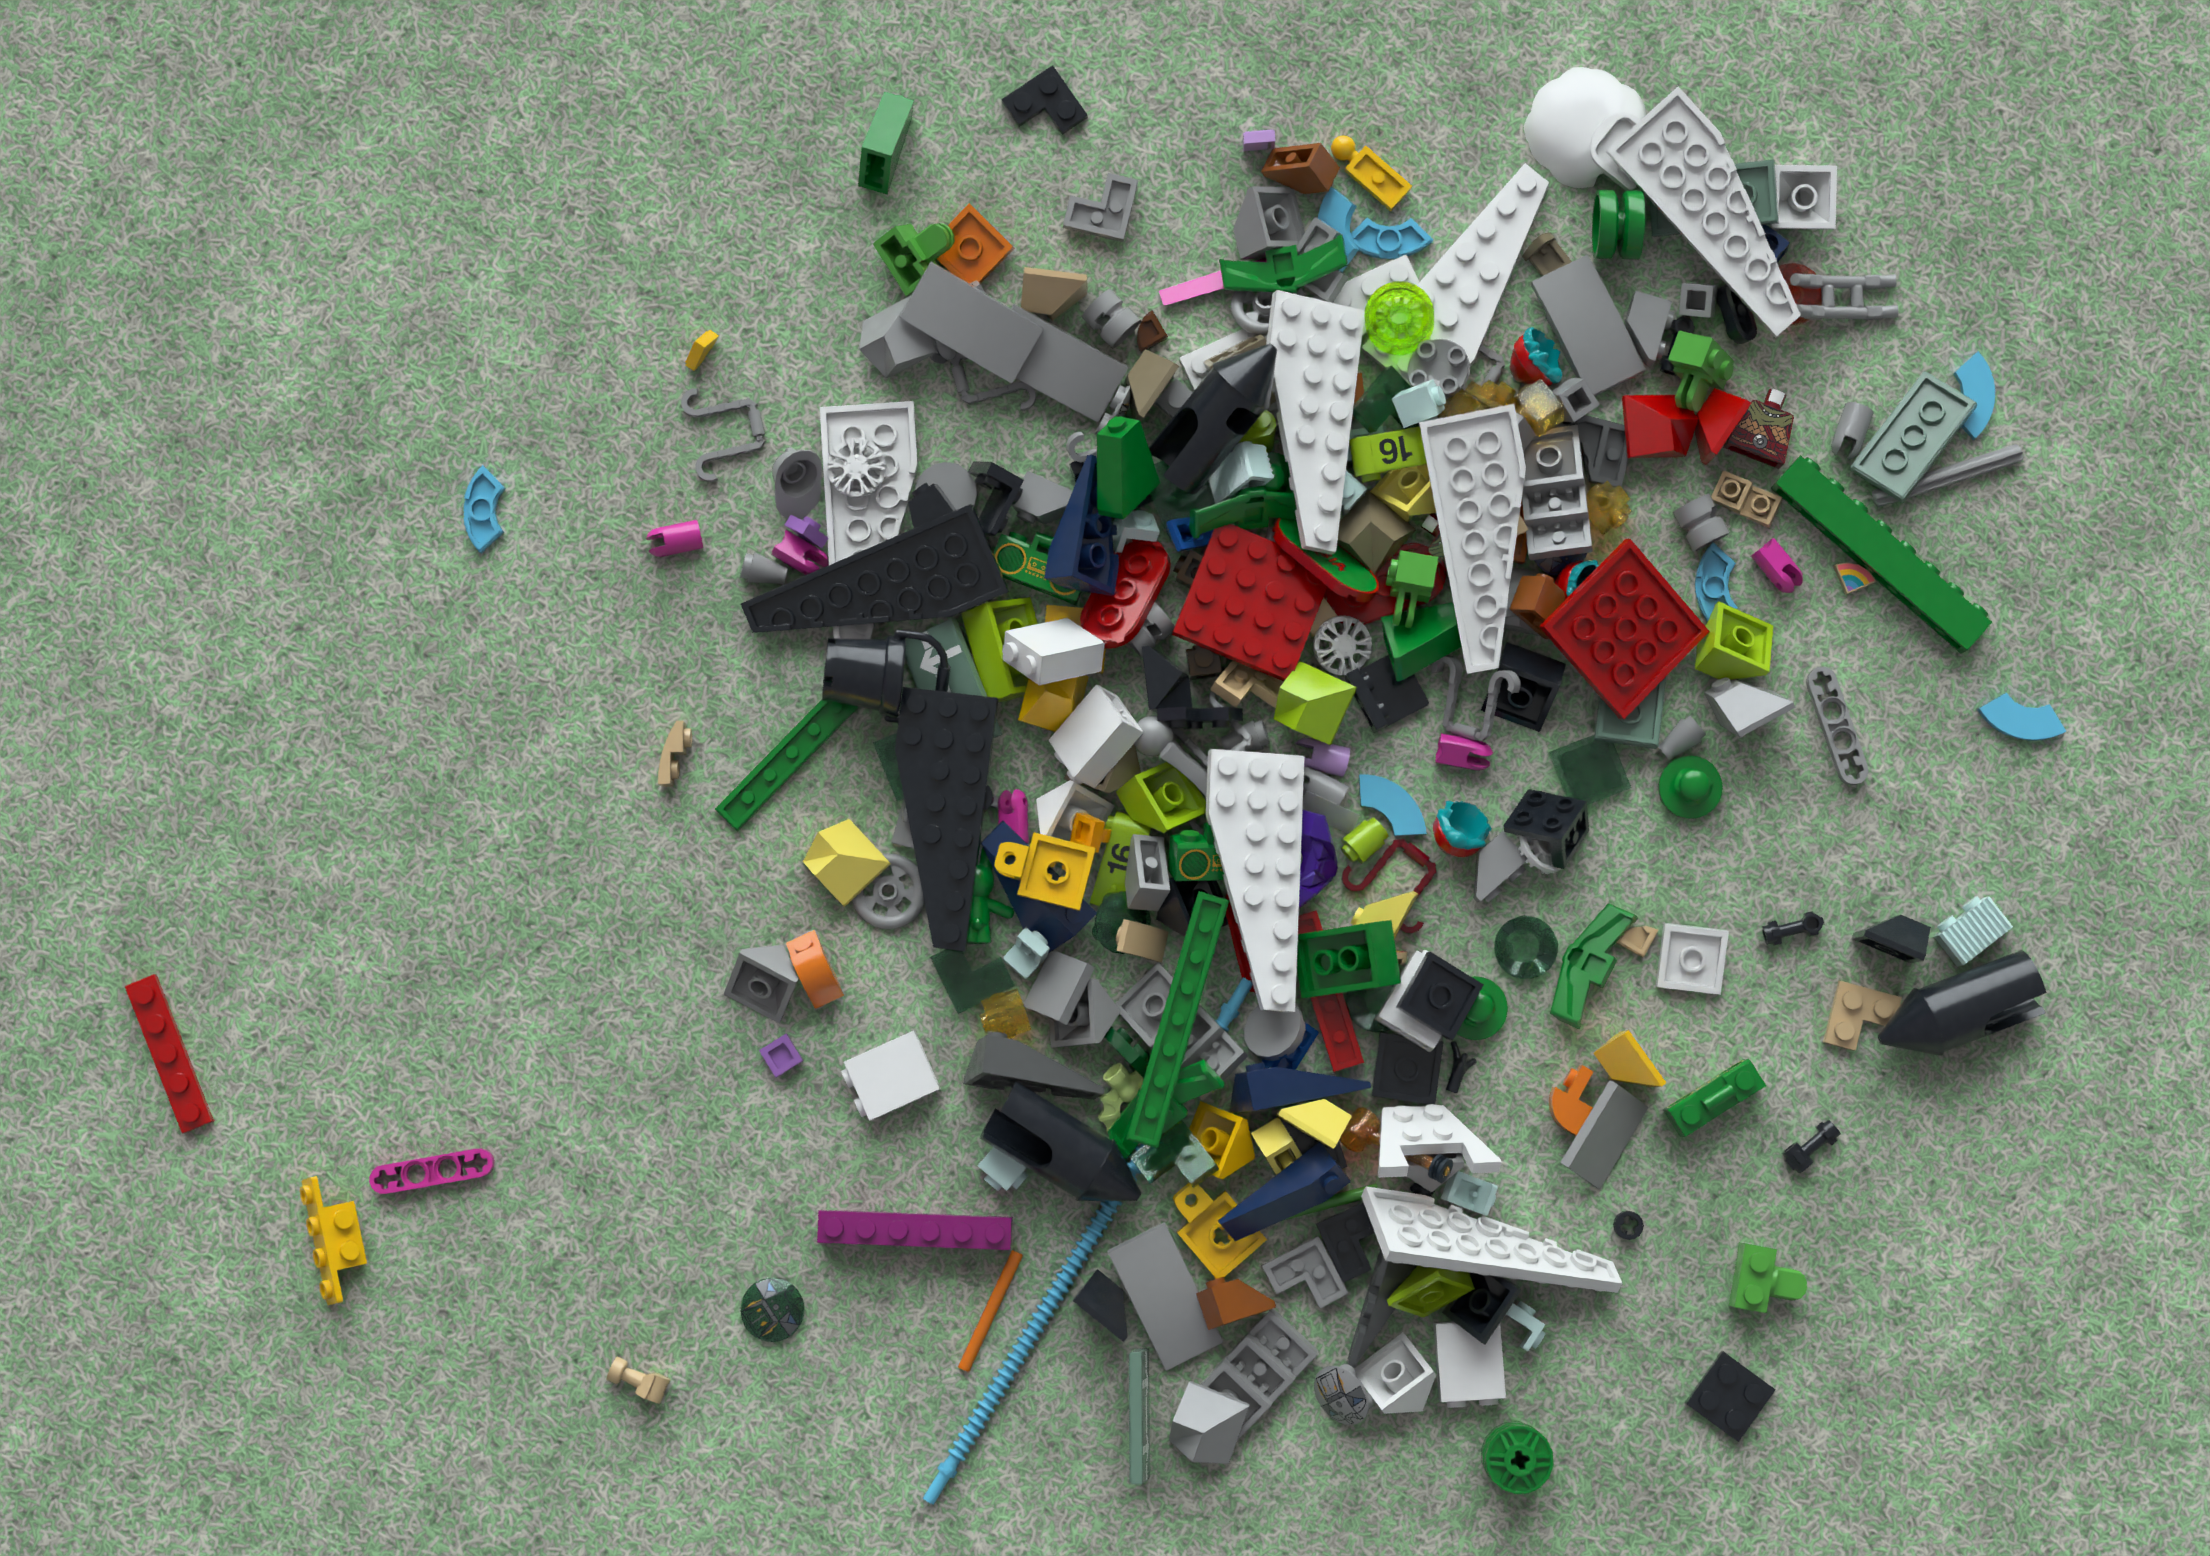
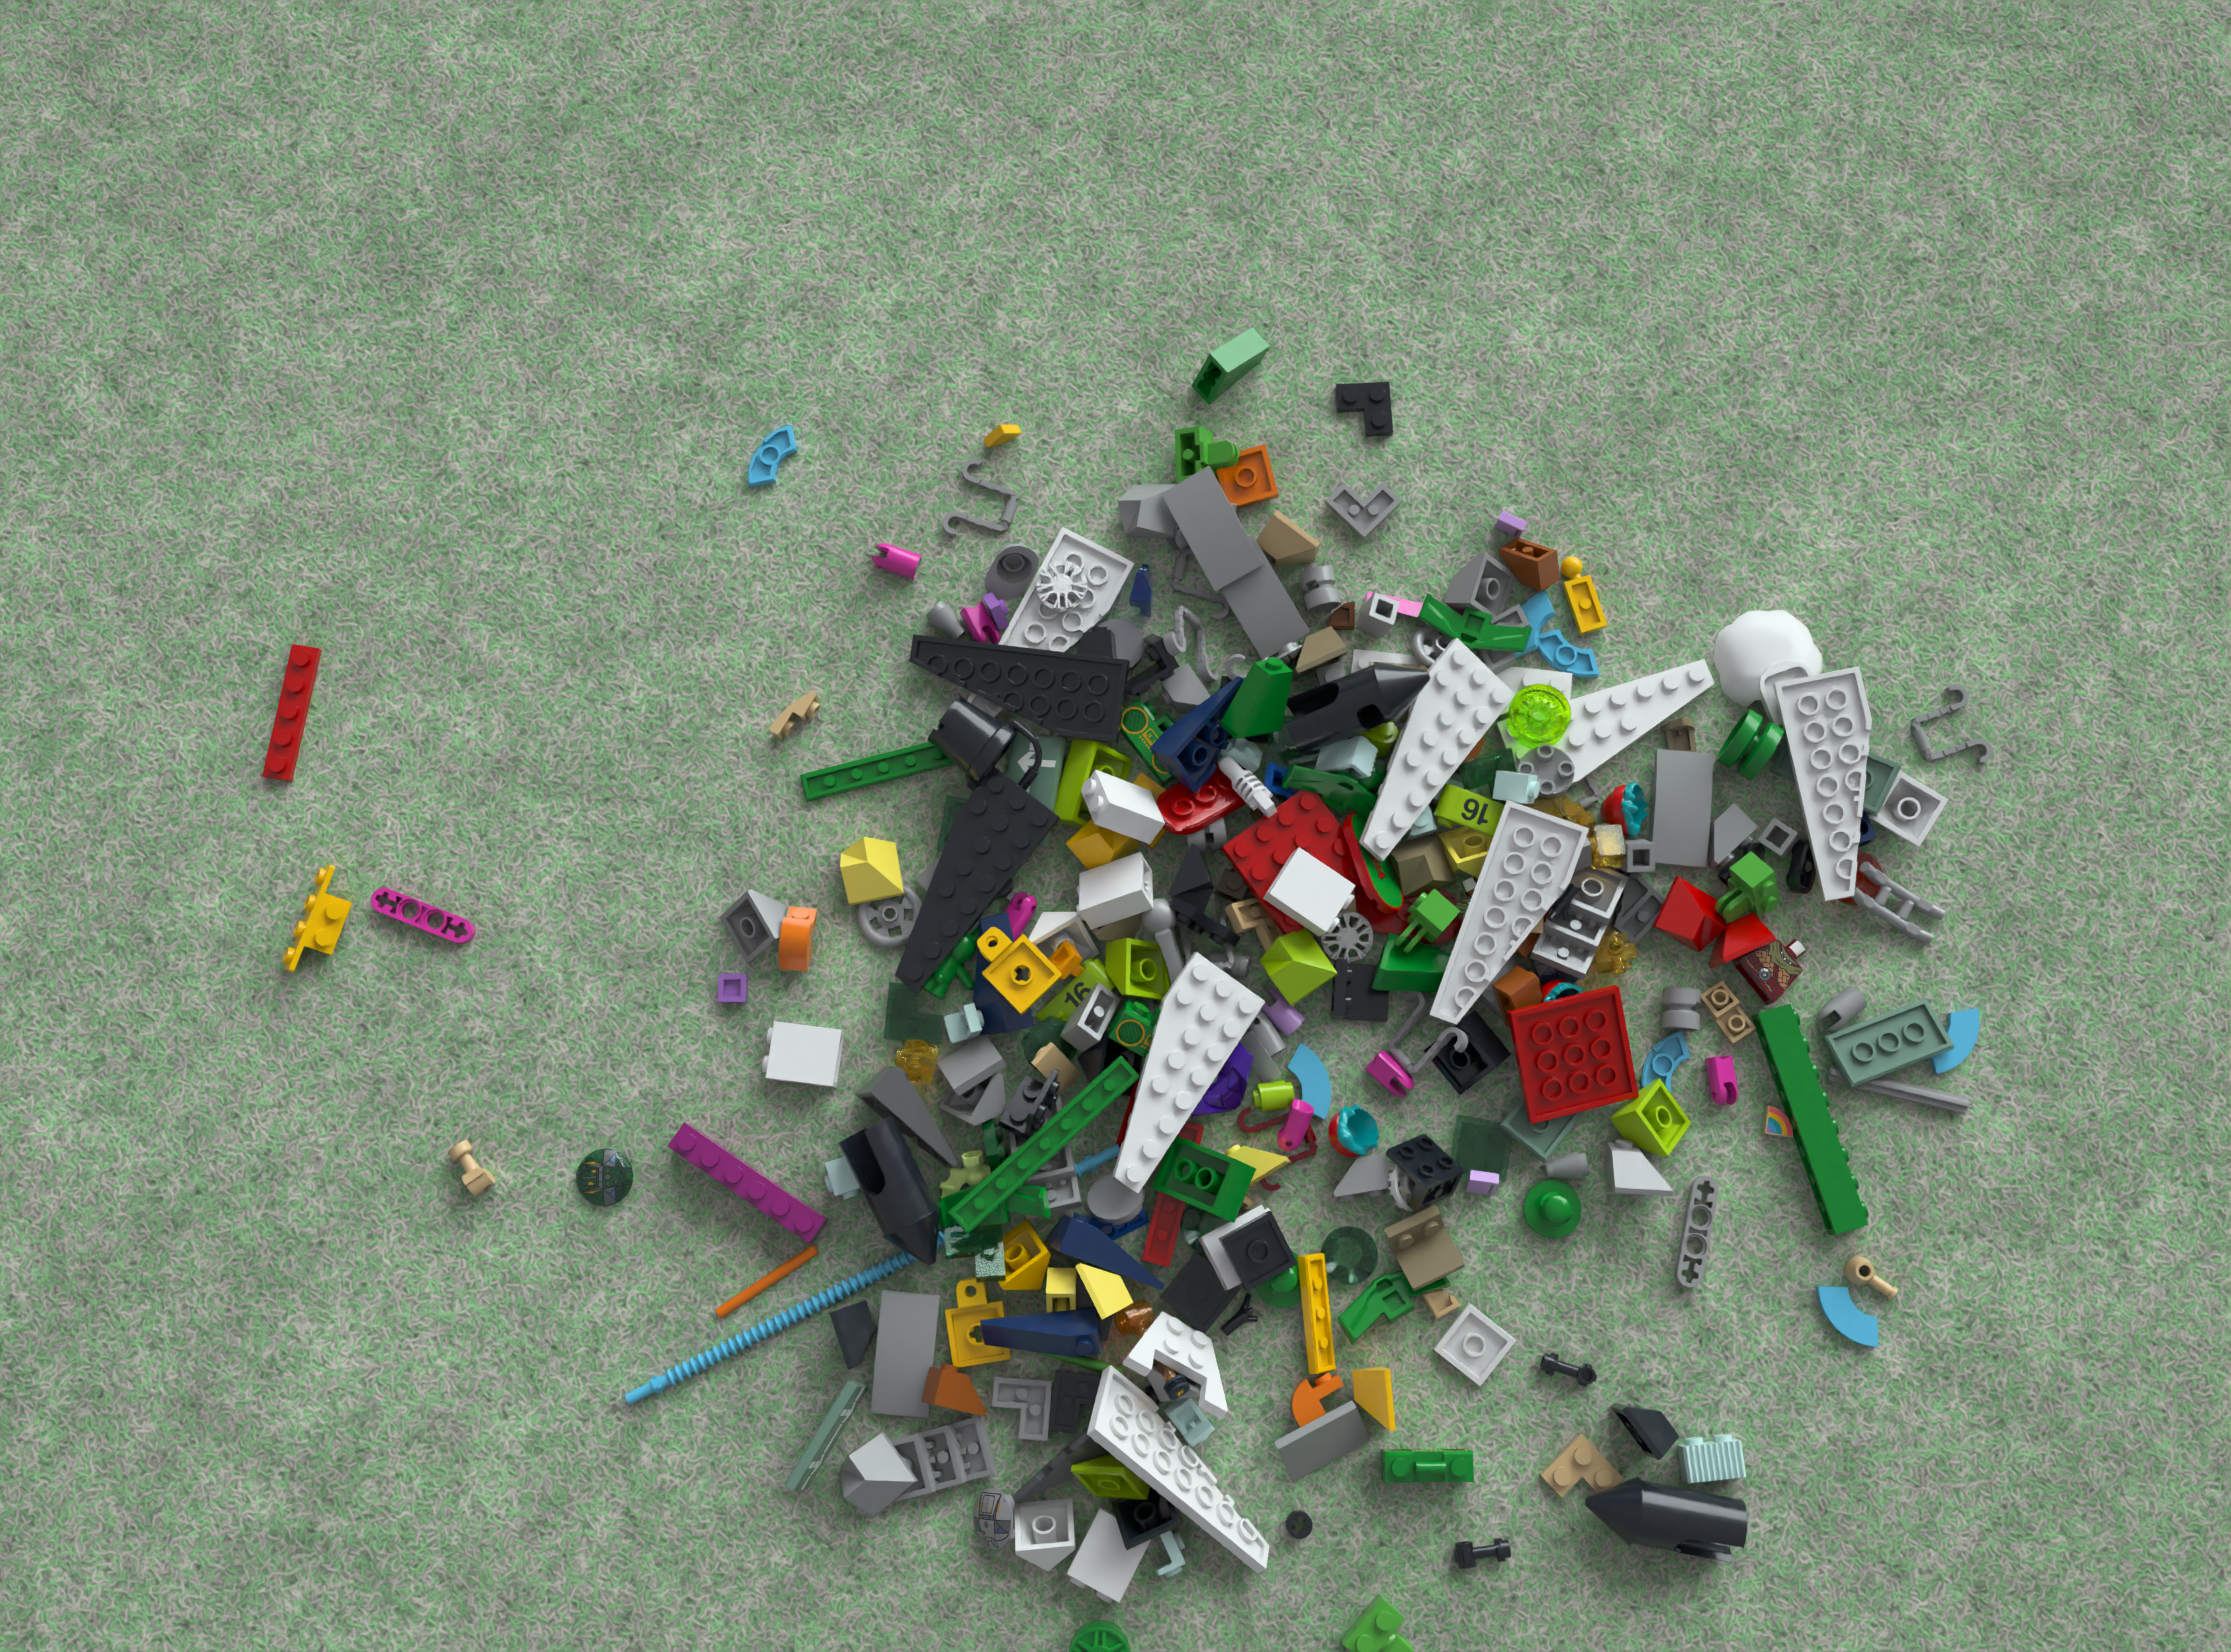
camera: 30 degrees right, 5 degrees down
(940, 425) = (1143, 591): none -> clear blue slope
(1007, 459) = (1176, 643): none -> light grey piece
(1140, 991) = (1029, 1105): none -> black bracket
(1162, 558) = (1248, 787): none -> white hinge
(1184, 310) = (1377, 615): none -> light grey brick
(1284, 625) = (1310, 892): none -> white brick
(1402, 856) = (1295, 1125): none -> dark pink piece
(1528, 1020) = (1316, 1313): none -> yellow tile
(1530, 488) = (1563, 903): none -> black bar
(1592, 898) = (1423, 1248): none -> dark tan bracket
(1610, 802) = (1482, 1182): none -> lavender tile
(1781, 119) = (1923, 743): none -> light grey piece
(2027, 671) = (1853, 1276): none -> tan bar

